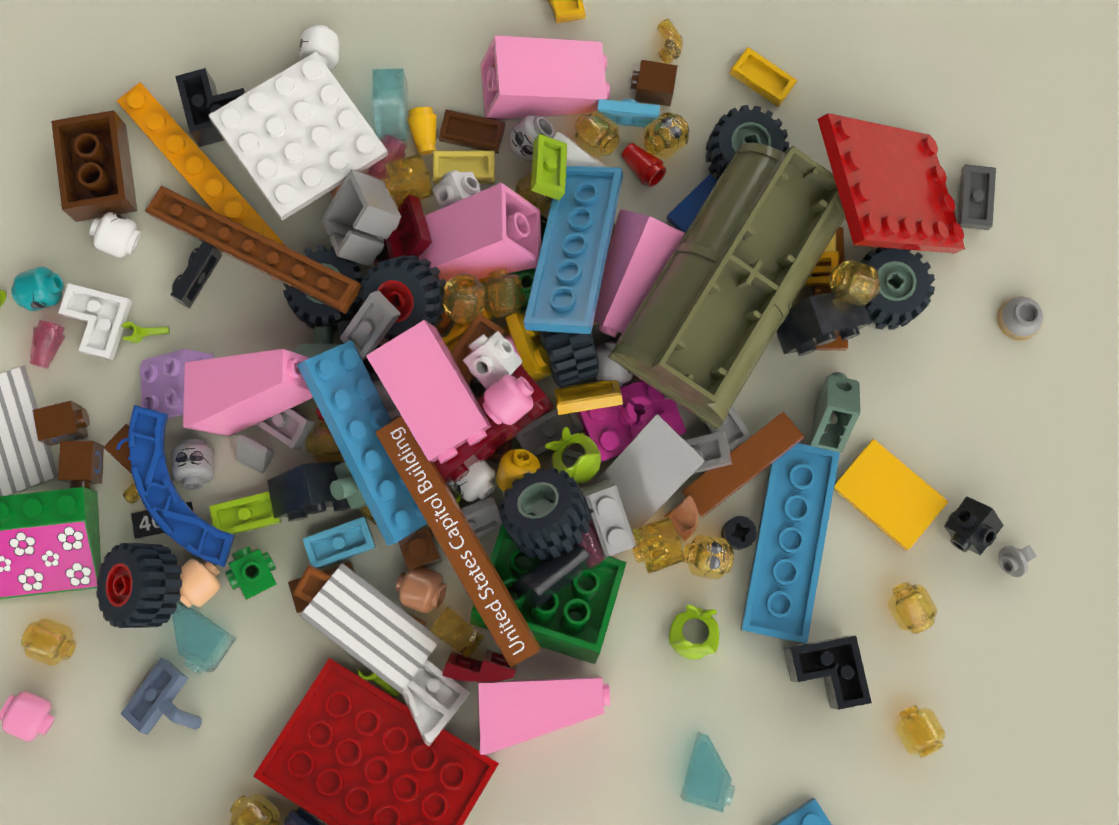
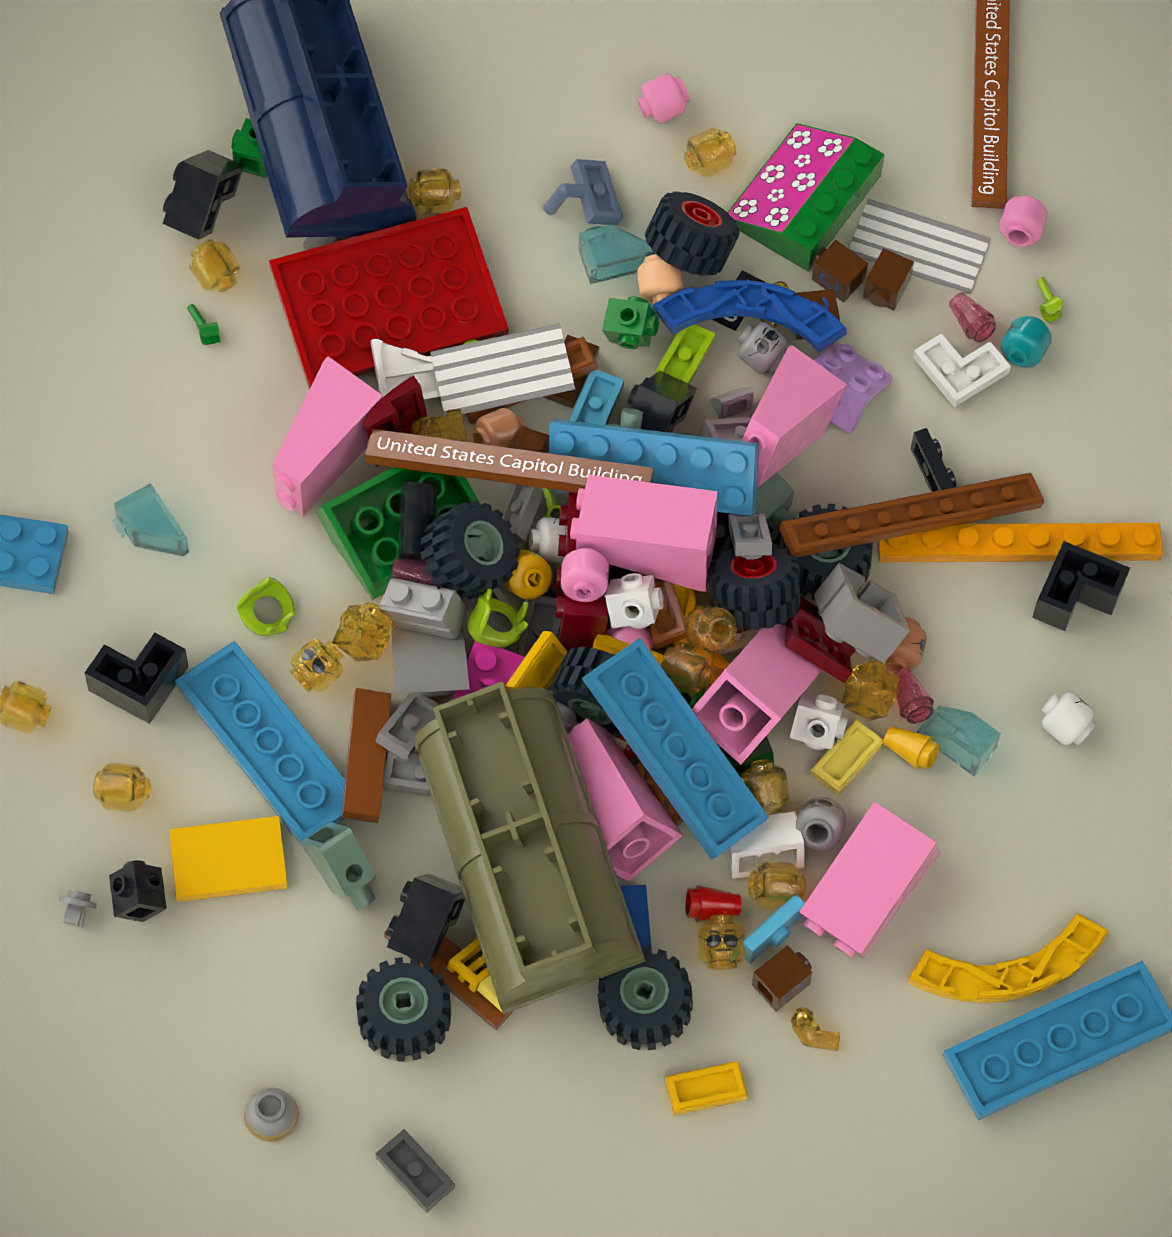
camera: 130 degrees right, 15 degrees down
(94, 165) = (1103, 456): reddish brown brick -> none
(115, 234) = (1025, 431): white head -> none
(141, 332) = (921, 393): lime hand -> none
(298, 135) = (984, 623): white plate -> none
(472, 131) = (882, 785): reddish brown tile -> none
(549, 167) = (771, 795): lime plate -> none
(684, 517) = (366, 675): nougat tile -> none
(734, 534) = (313, 716): black wheel -> none
(854, 282) = (432, 949): clear yellow head -> none
(891, 186) = (487, 1053): red plate -> none

